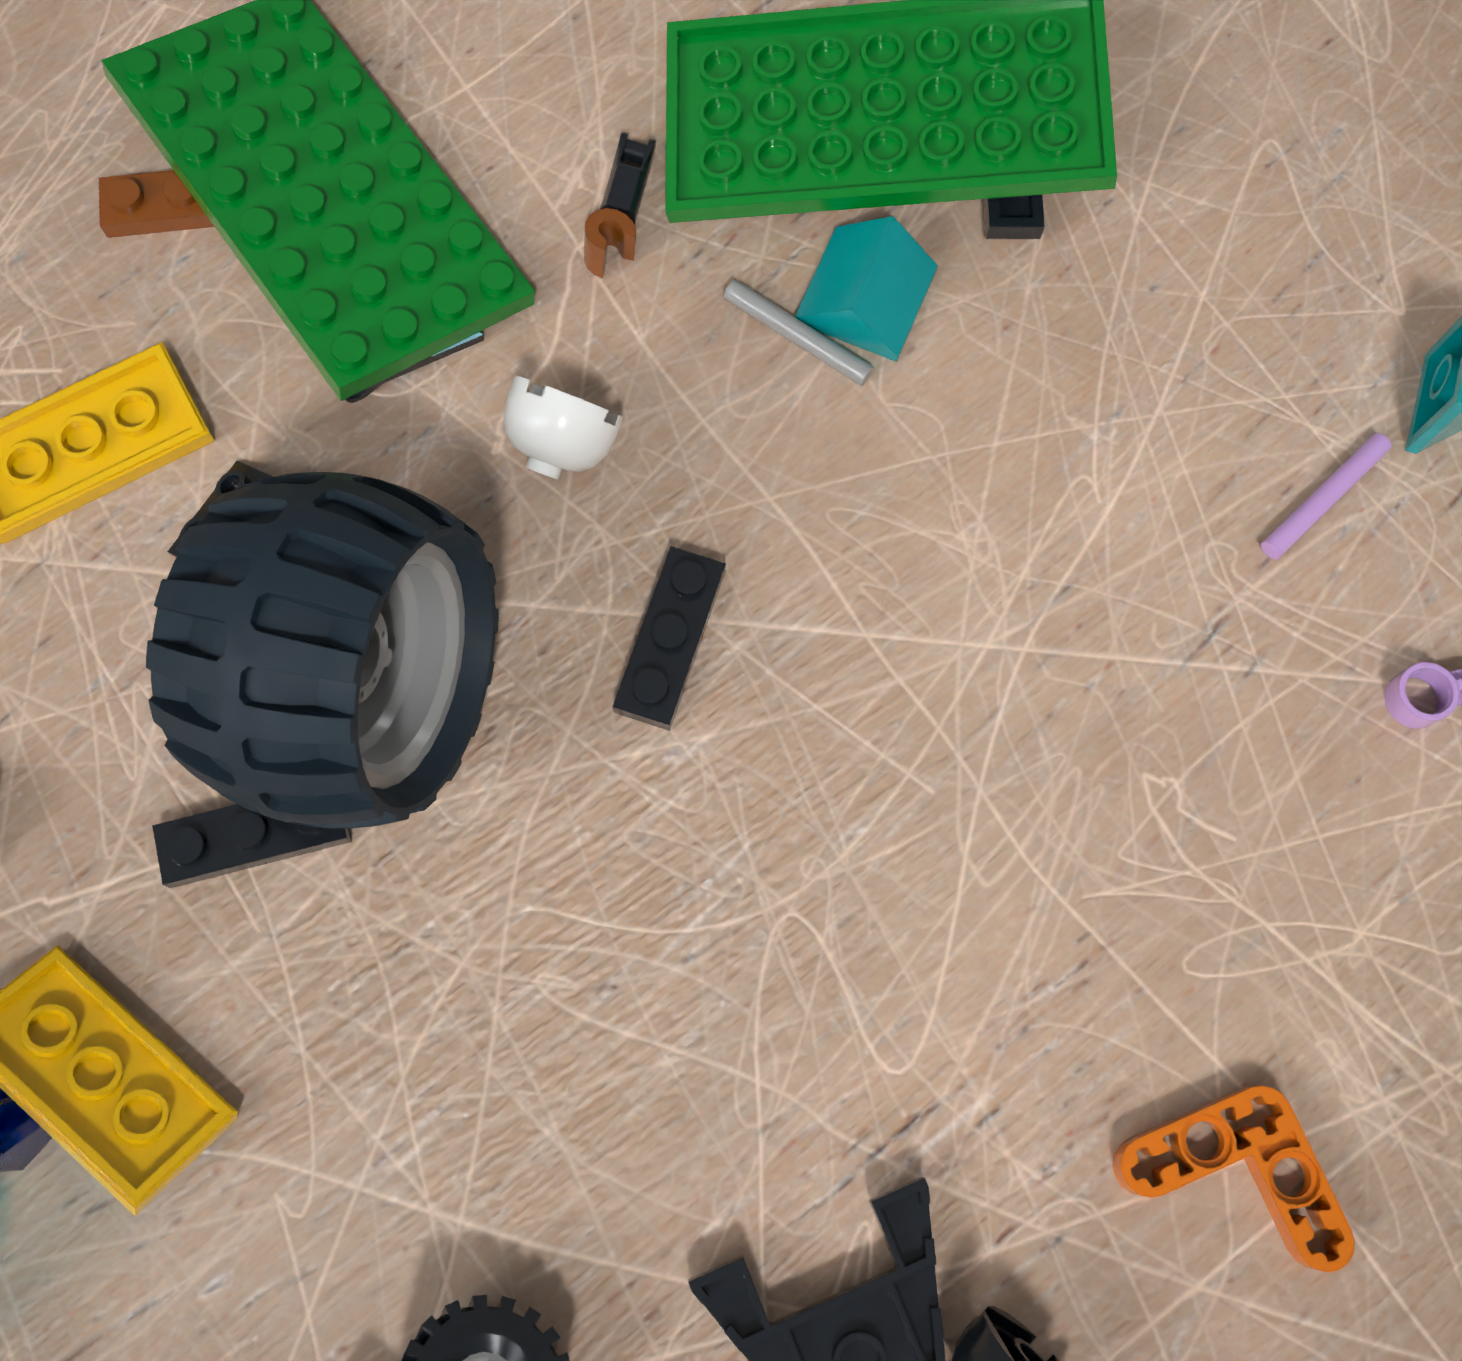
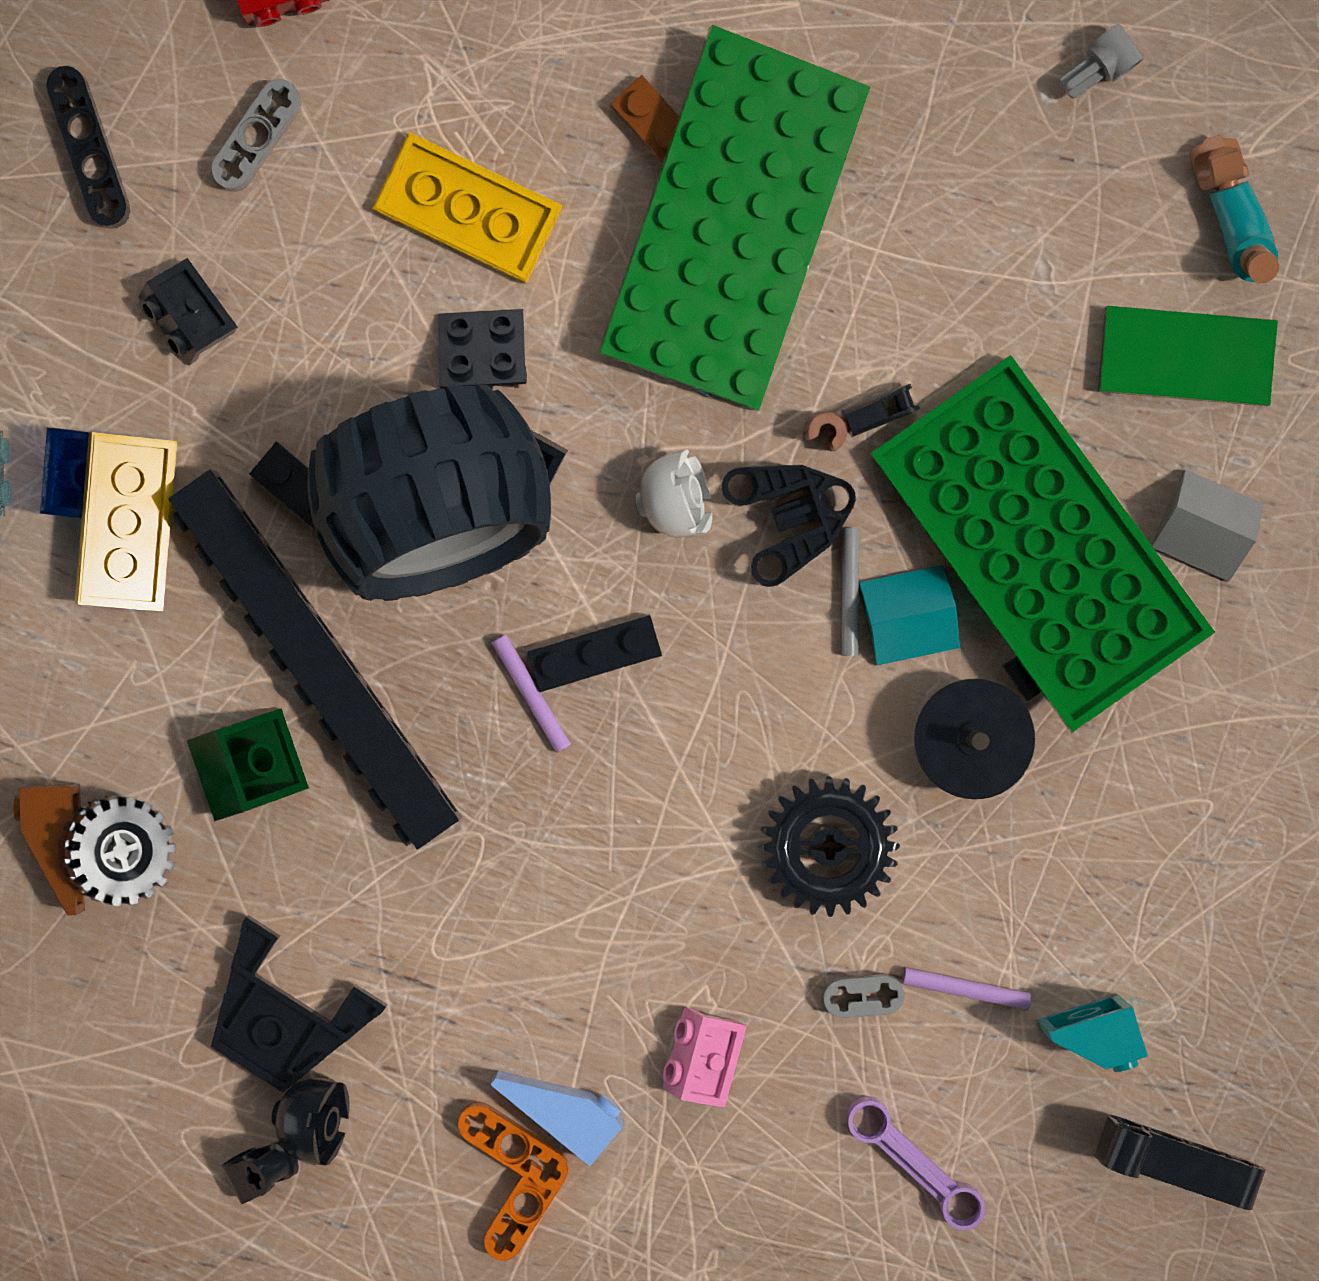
camera: 55 degrees right, 15 degrees up
(430, 960) = (314, 658): none -> black brick
(498, 1140) = (247, 764): none -> dark green slope
(626, 312) = (776, 481): none -> black connector
(663, 739) = (531, 693): none -> lavender bar
(1051, 570) = (871, 846): none -> black gear
(1052, 292) = (974, 738): none -> black piece
(1204, 1040) = (567, 1113): none -> light blue slope
(1232, 833) = (703, 1058): none -> bright pink bracket
(1255, 601) = (863, 1006): none -> light grey beam

